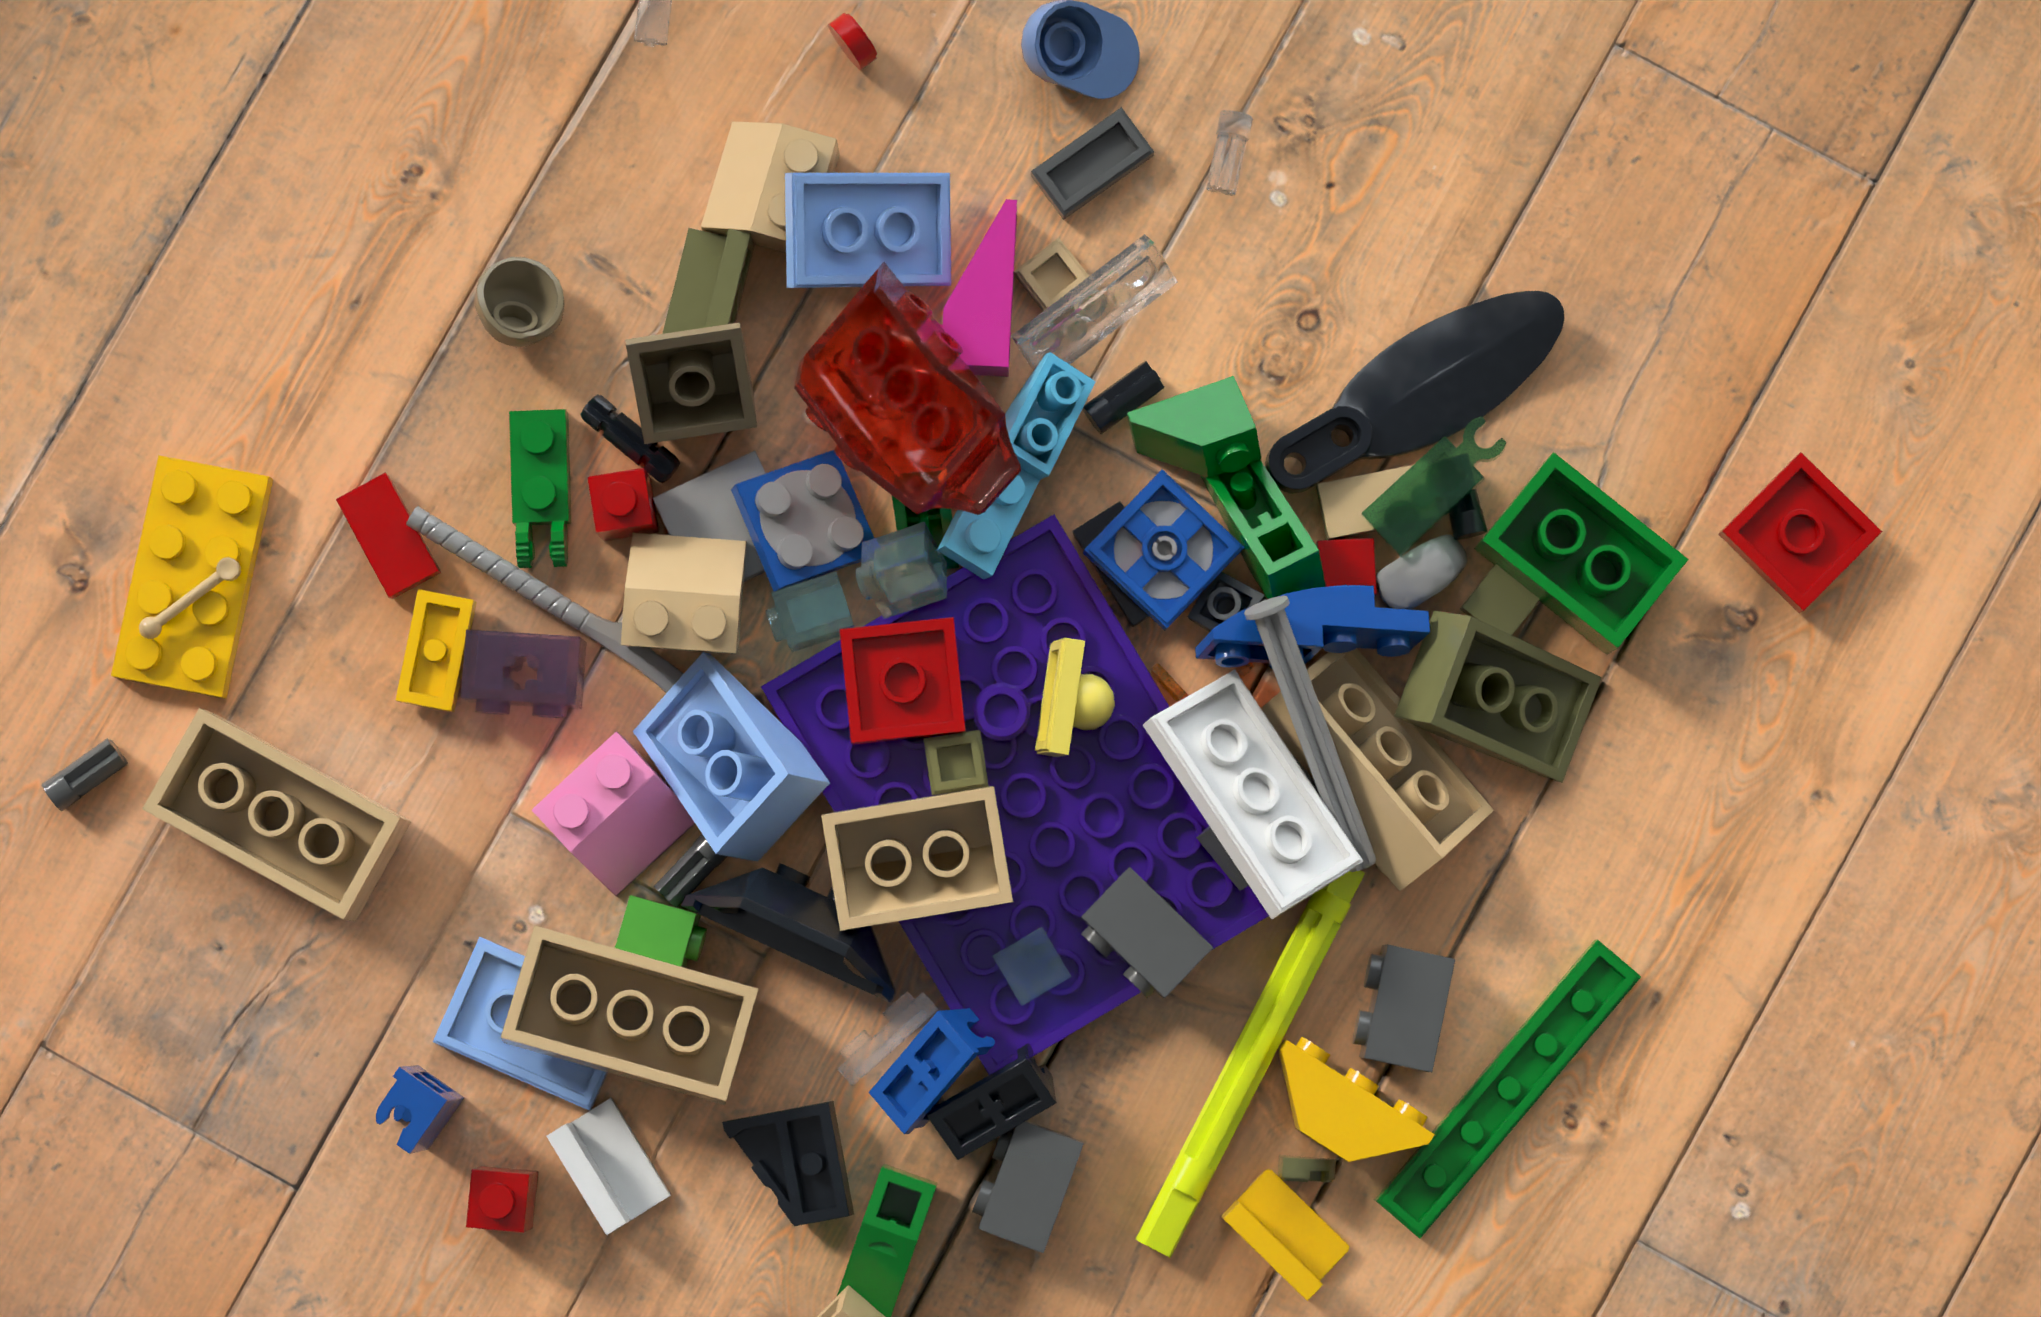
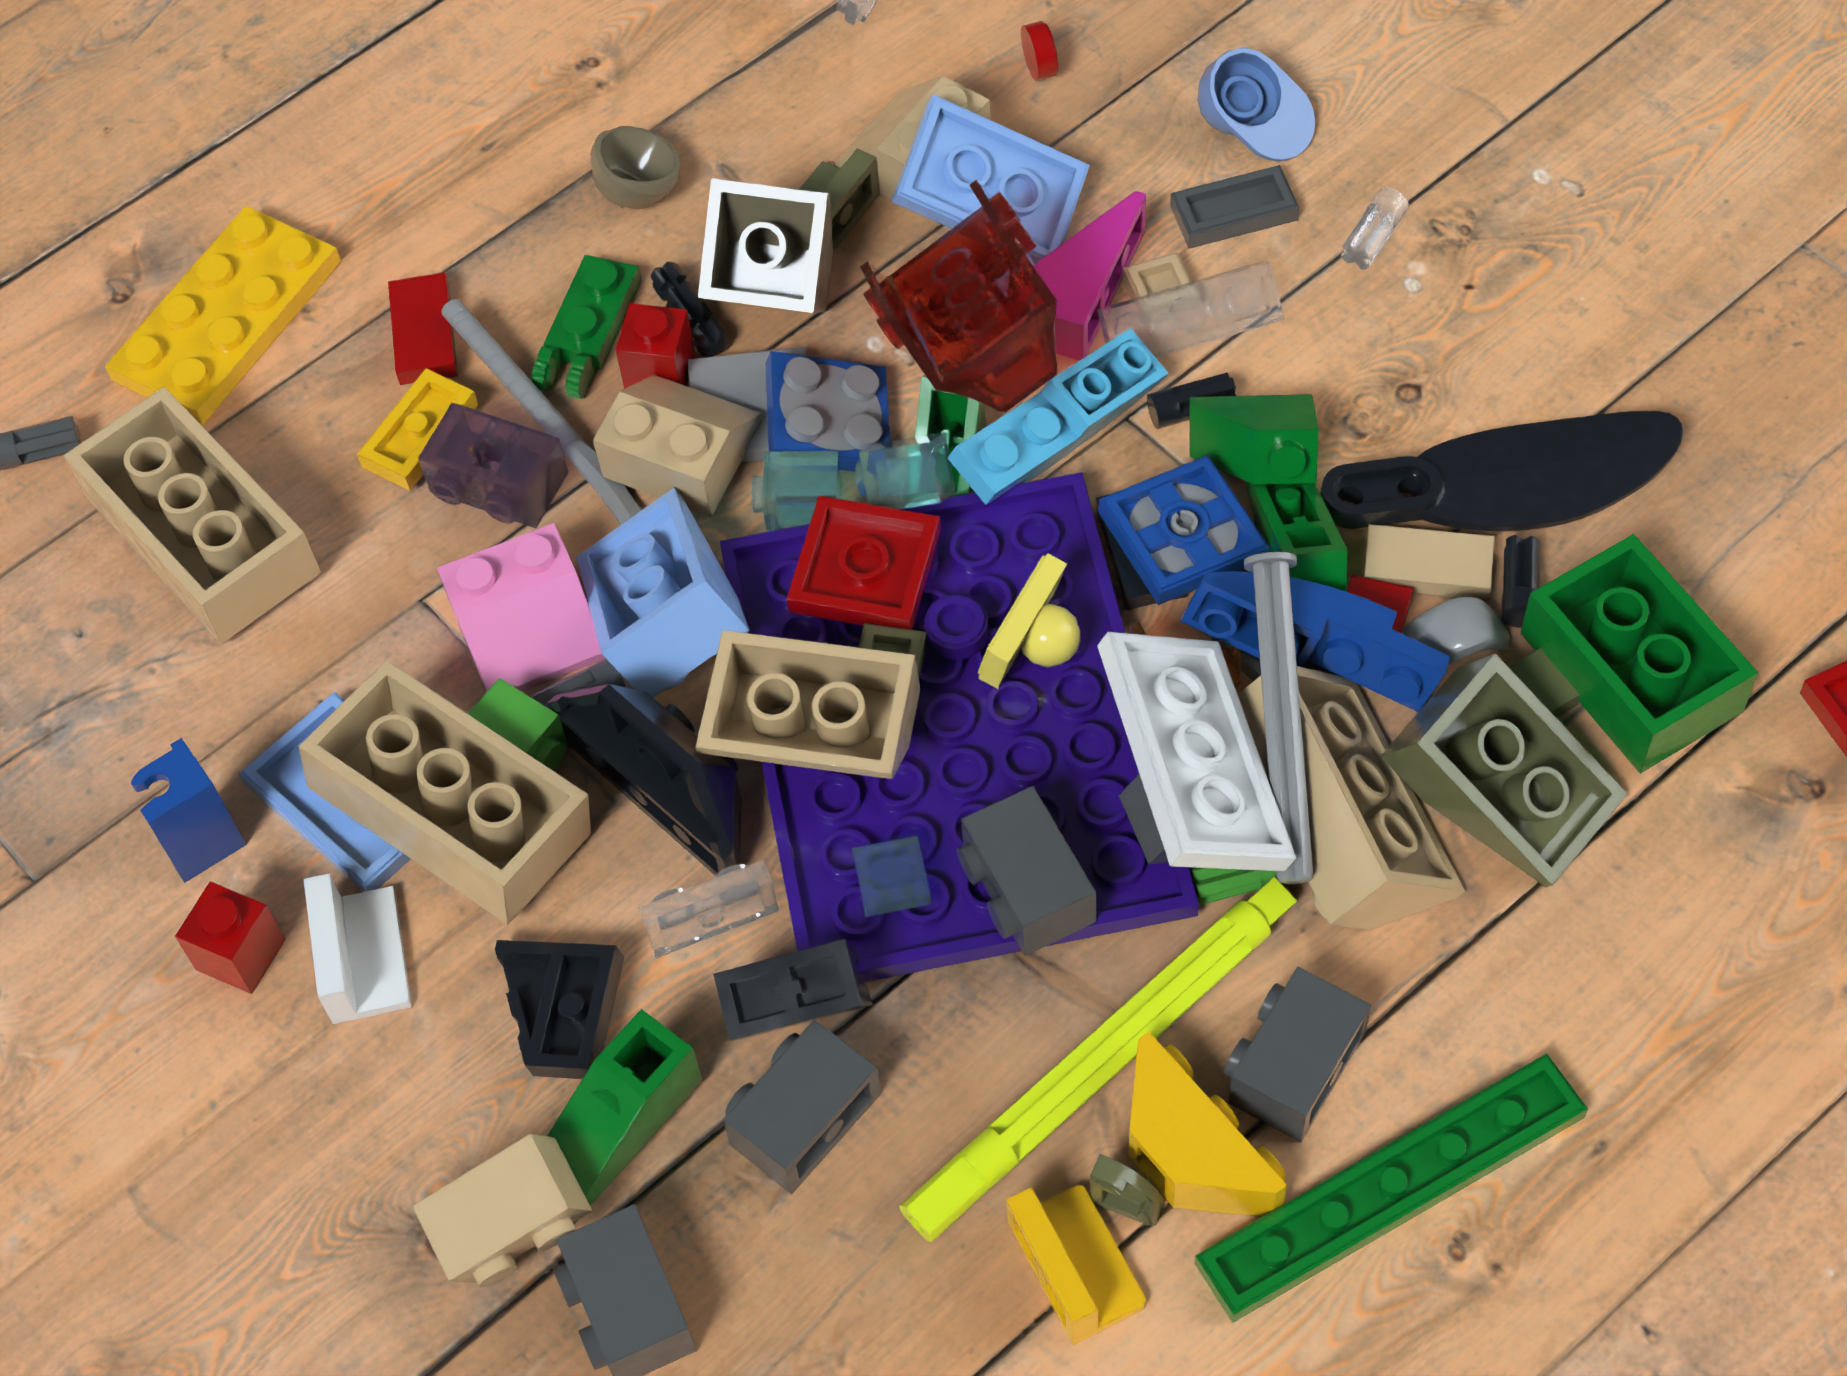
camera: 25 degrees right, 25 degrees down
(226, 569) = (255, 301): tan hinge -> none
(929, 1067) = (735, 929): blue hinge -> none
(1430, 489) = (1491, 545): clear green plate -> none

